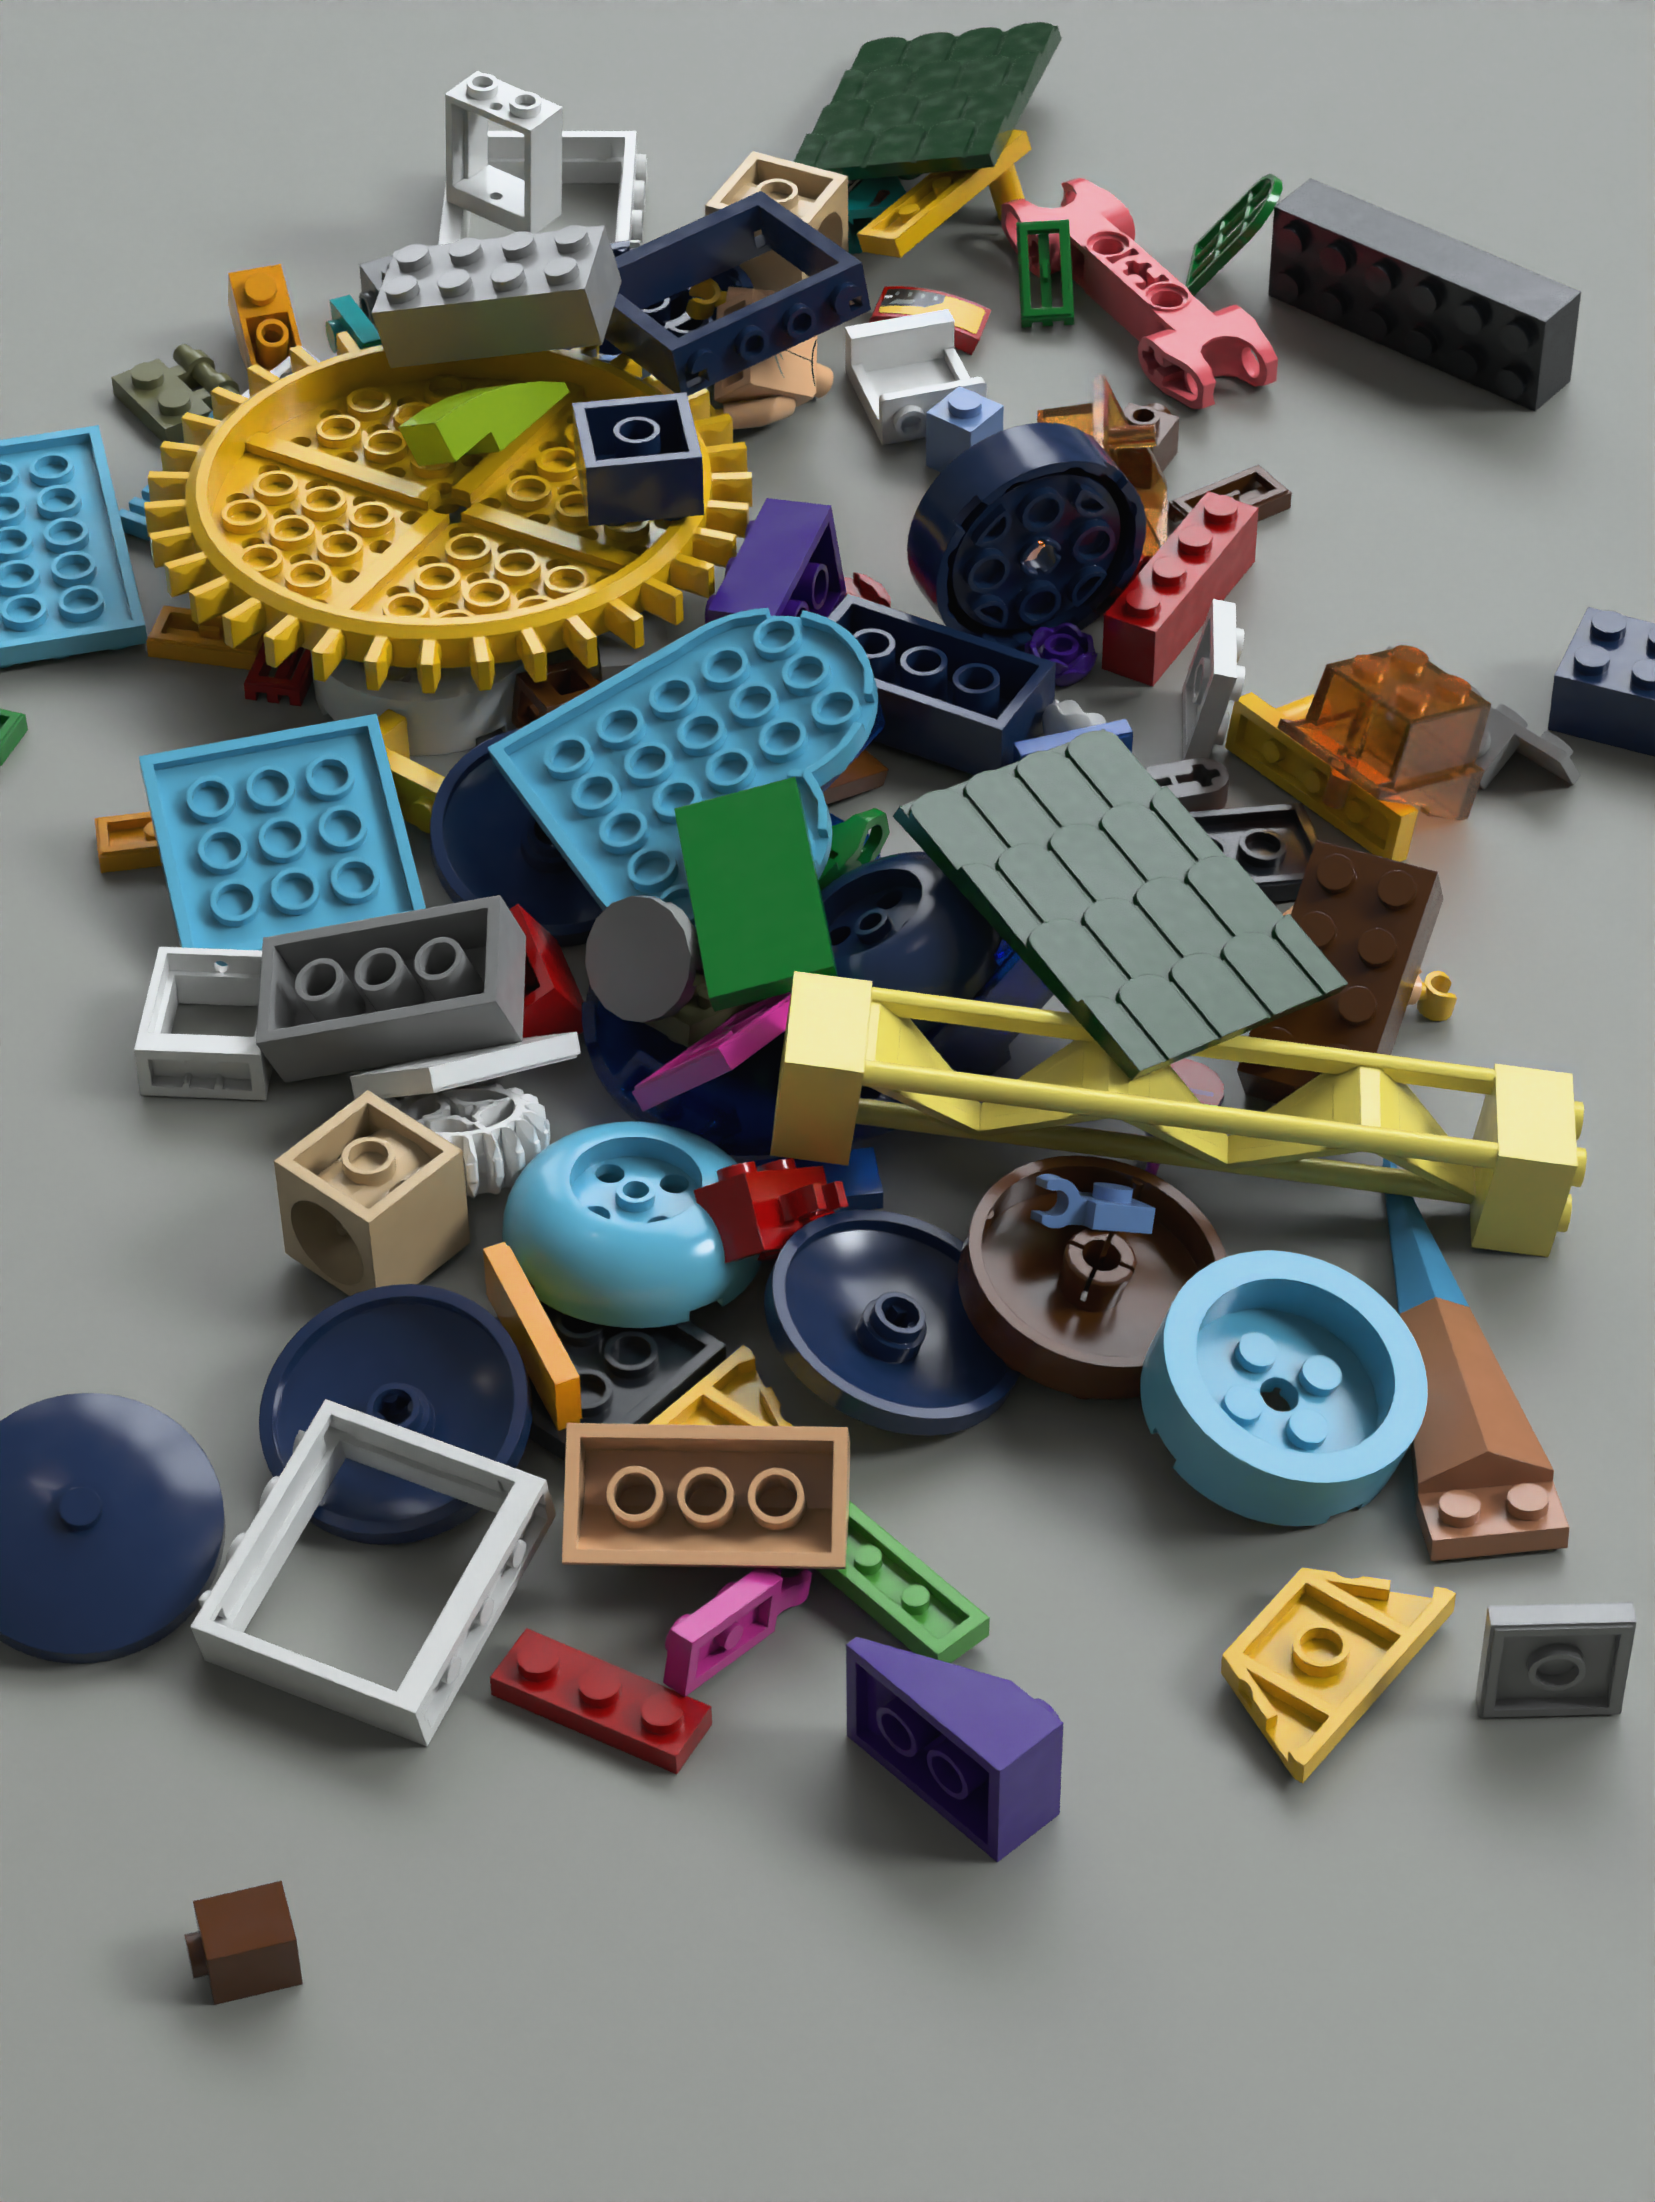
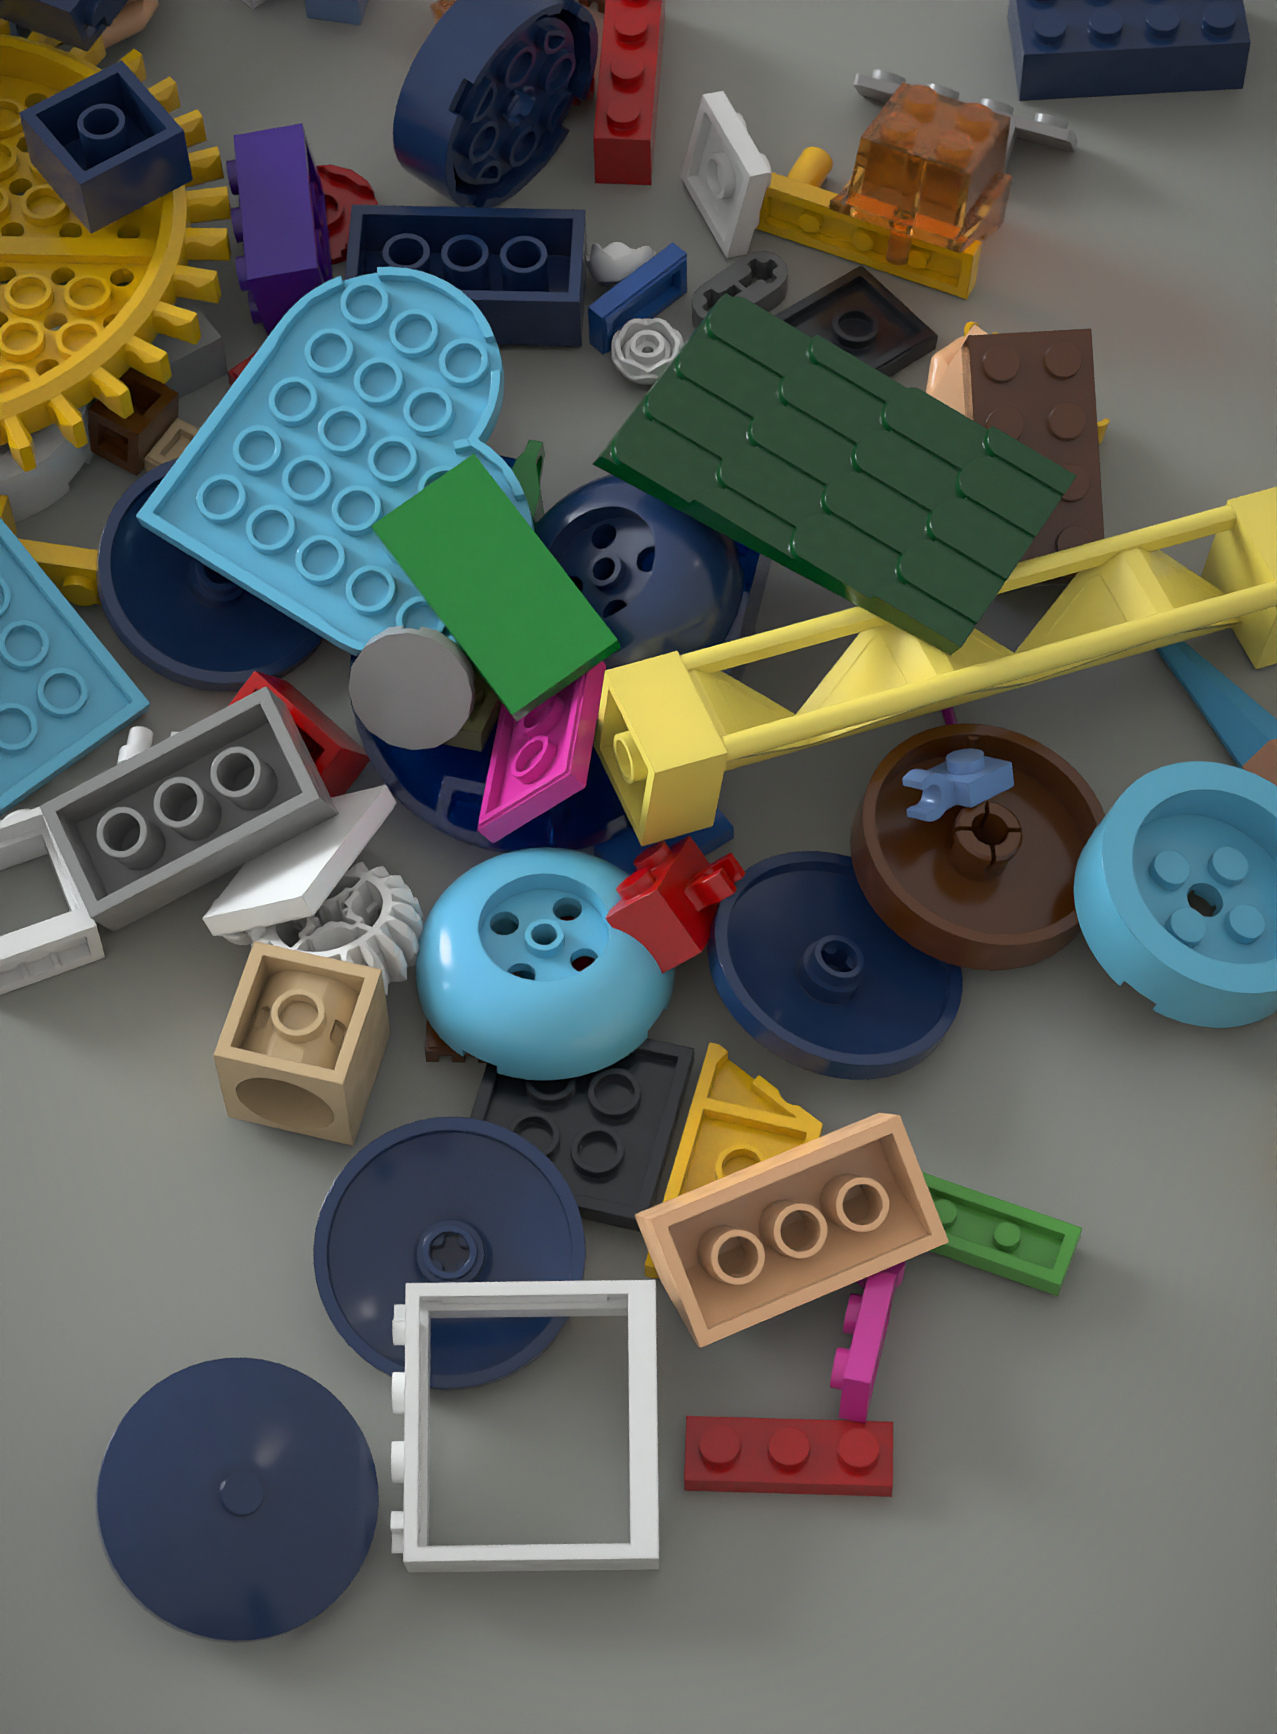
camera: 25 degrees left, 15 degrees up
(533, 1335) = (522, 1112): light orange tile -> none
(958, 1741) = (1137, 1371): dark purple slope -> none
(1068, 648) = (559, 183): dark purple plate -> none

